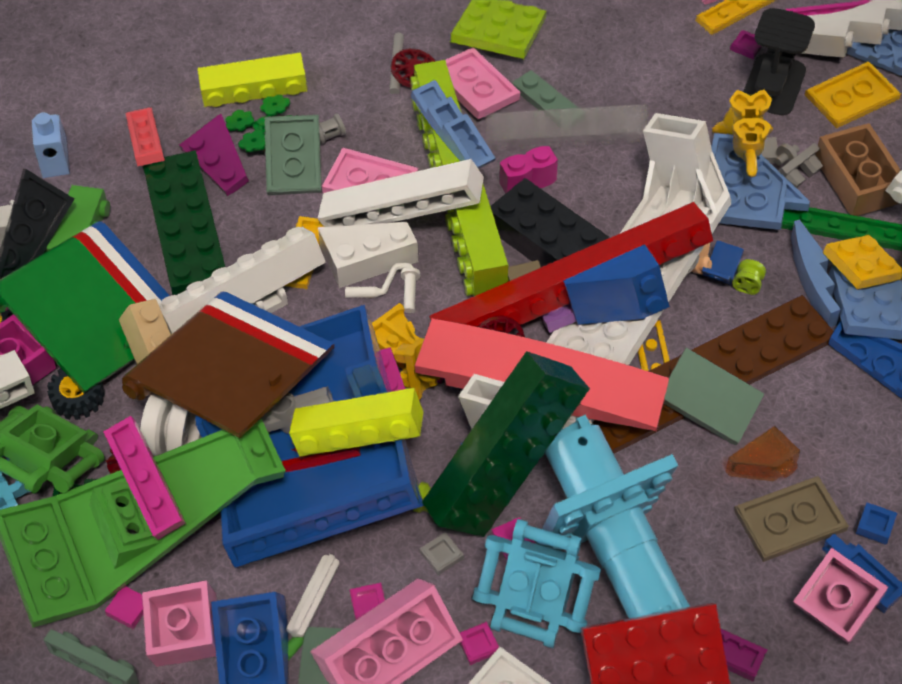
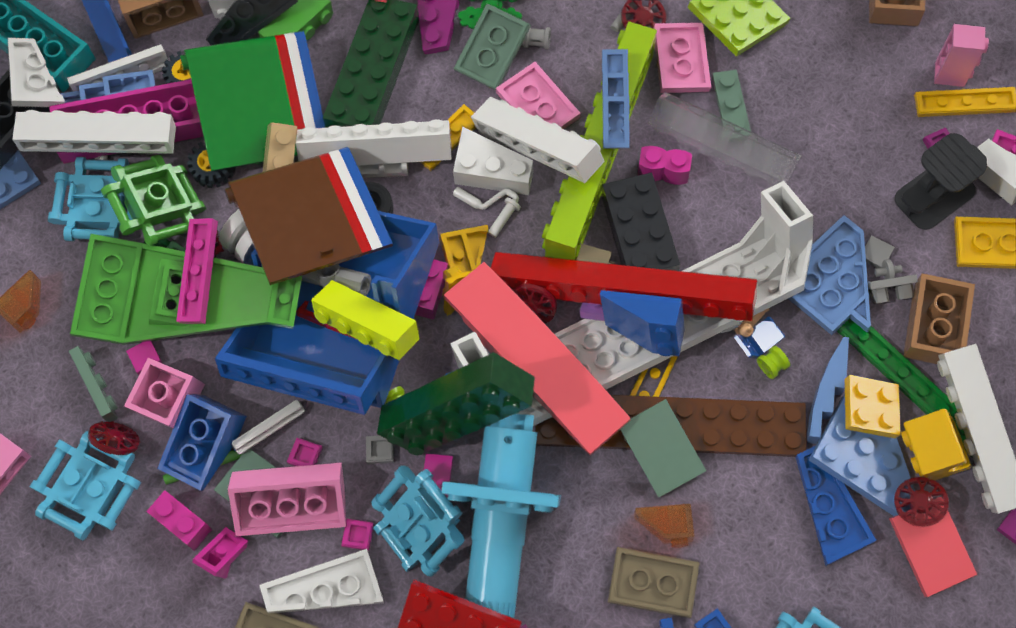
camera: 35 degrees right, 15 degrees up
(747, 126) = (857, 241): yellow animal -> none

